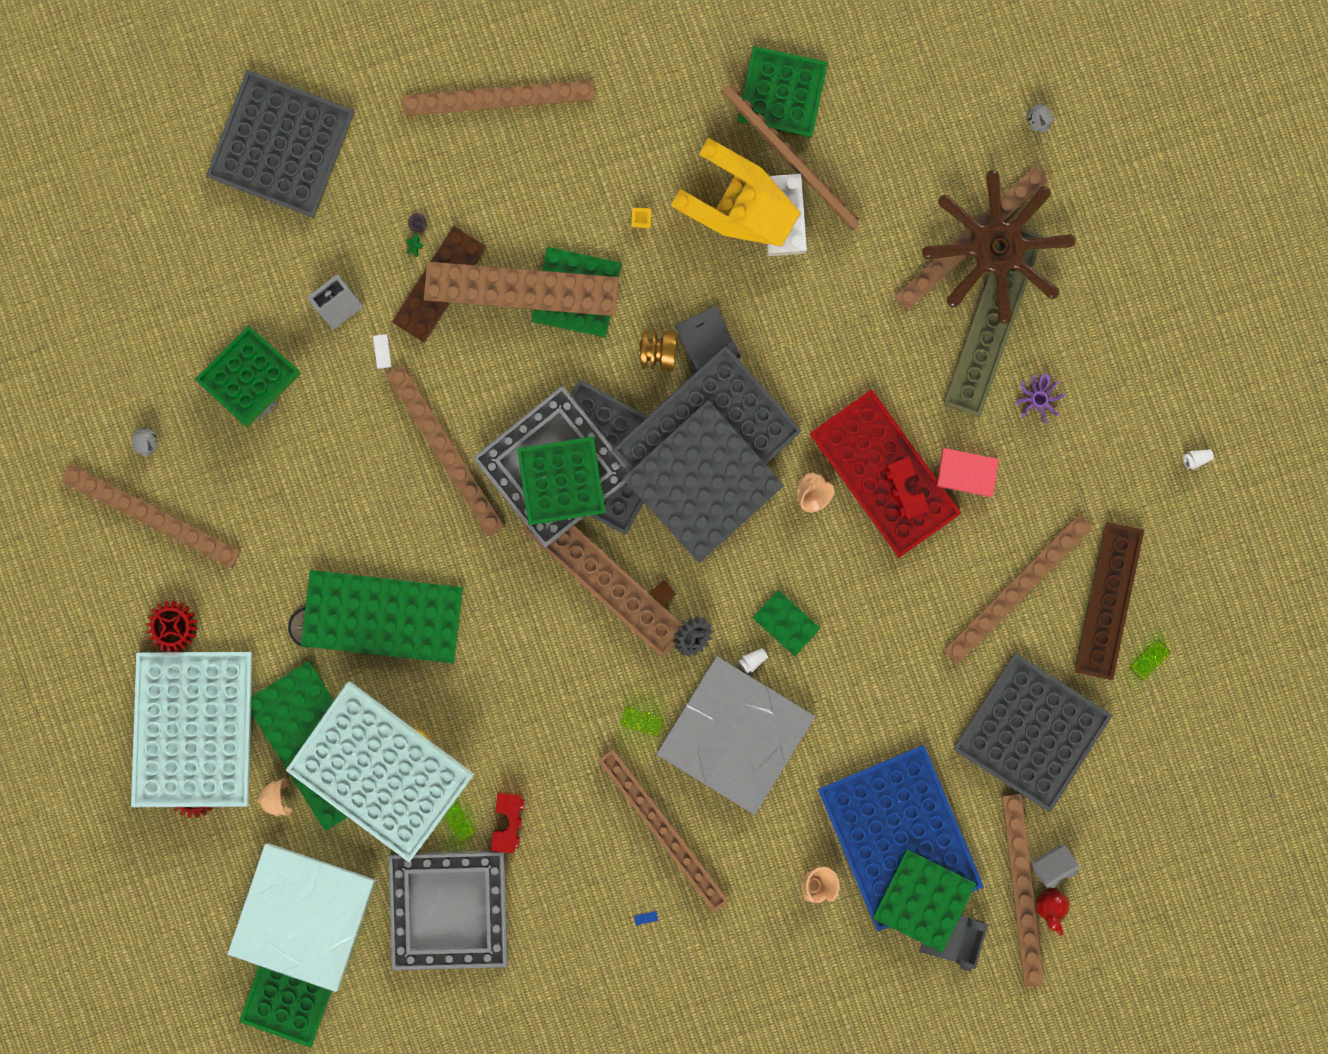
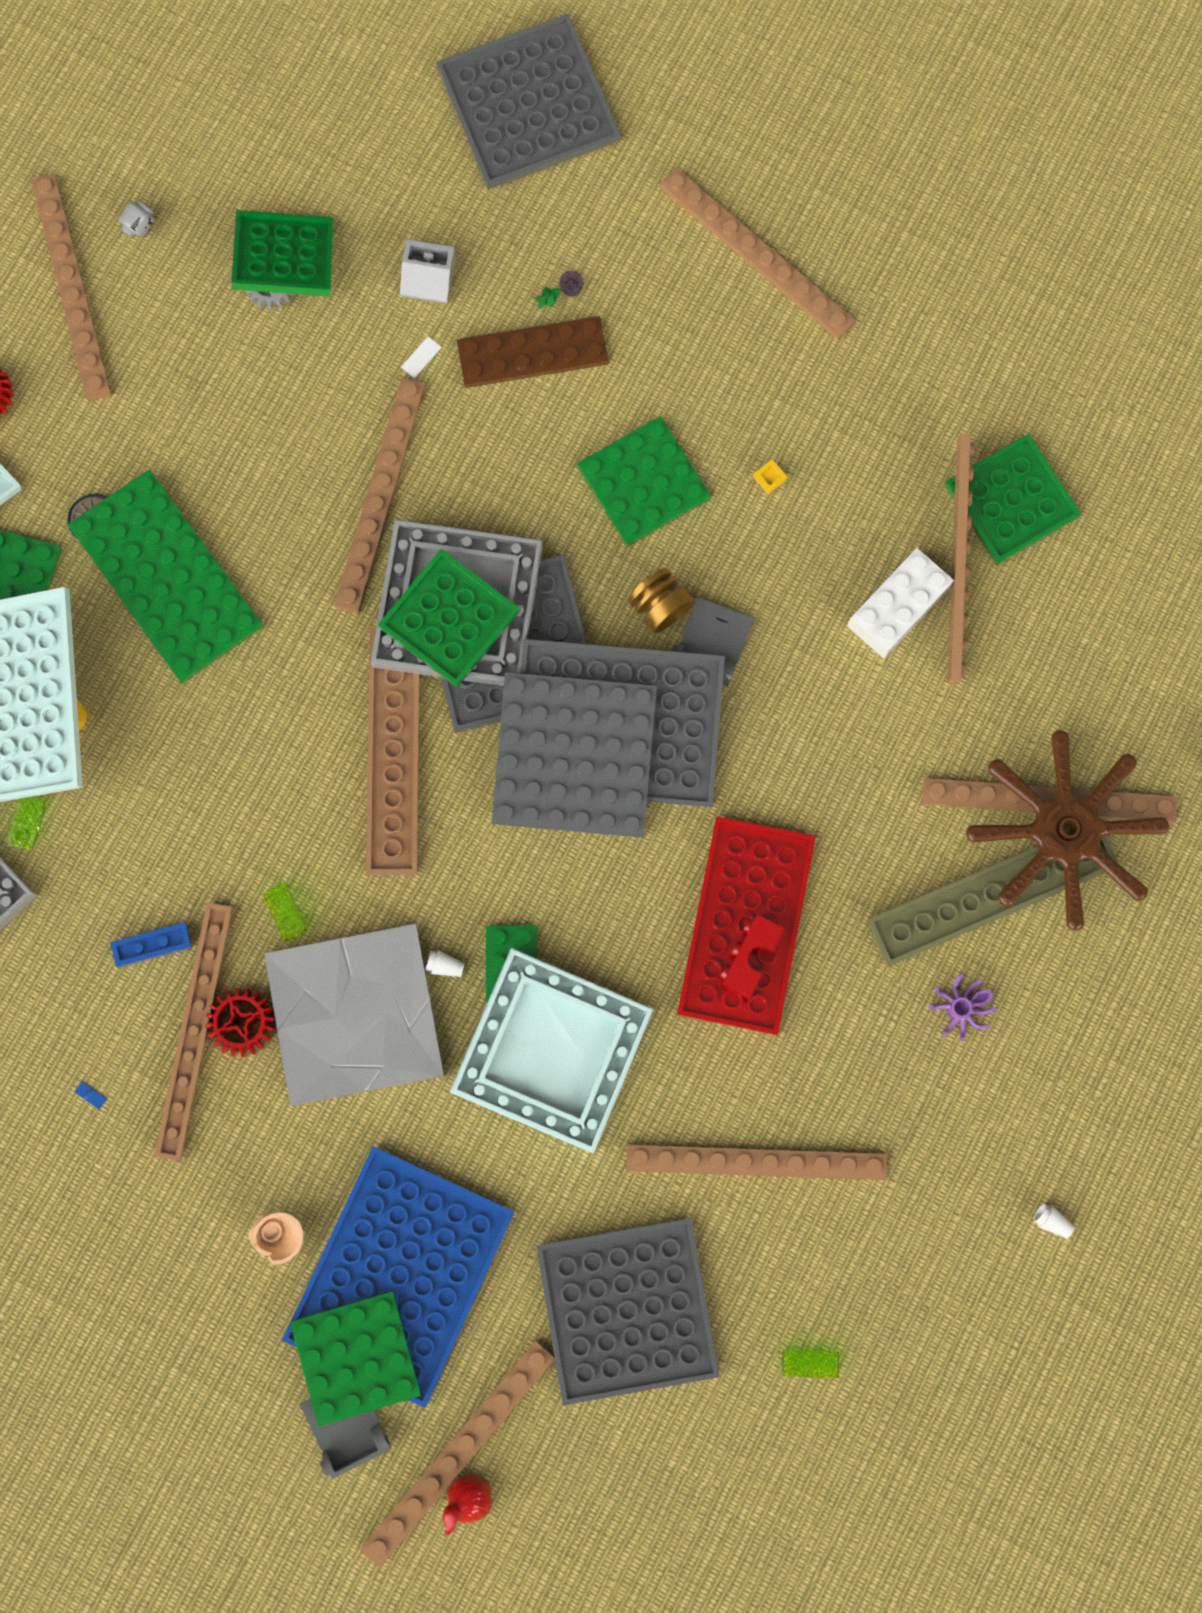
camera: 55 degrees right, 10 degrees down
(507, 839) = (86, 861): red arch -> none
(521, 289) = (599, 426): medium nougat plate -> none
(592, 812) = (151, 945): none -> blue plate
(663, 593) = (431, 817): reddish brown tile -> none
(691, 804) = (251, 1018): none -> red gear
(692, 636) = (414, 882): dark grey gear -> none
(751, 205) = (878, 563): yellow wedge -> none
(814, 492) = (663, 872): light nougat helmet -> none
(856, 645) = (551, 1050): none -> light aqua tile
(967, 472) = (823, 1004): coral tile -> none
(1055, 866) = (511, 1461): light grey slope -> none
(1109, 601) = (829, 1265): reddish brown plate -> none

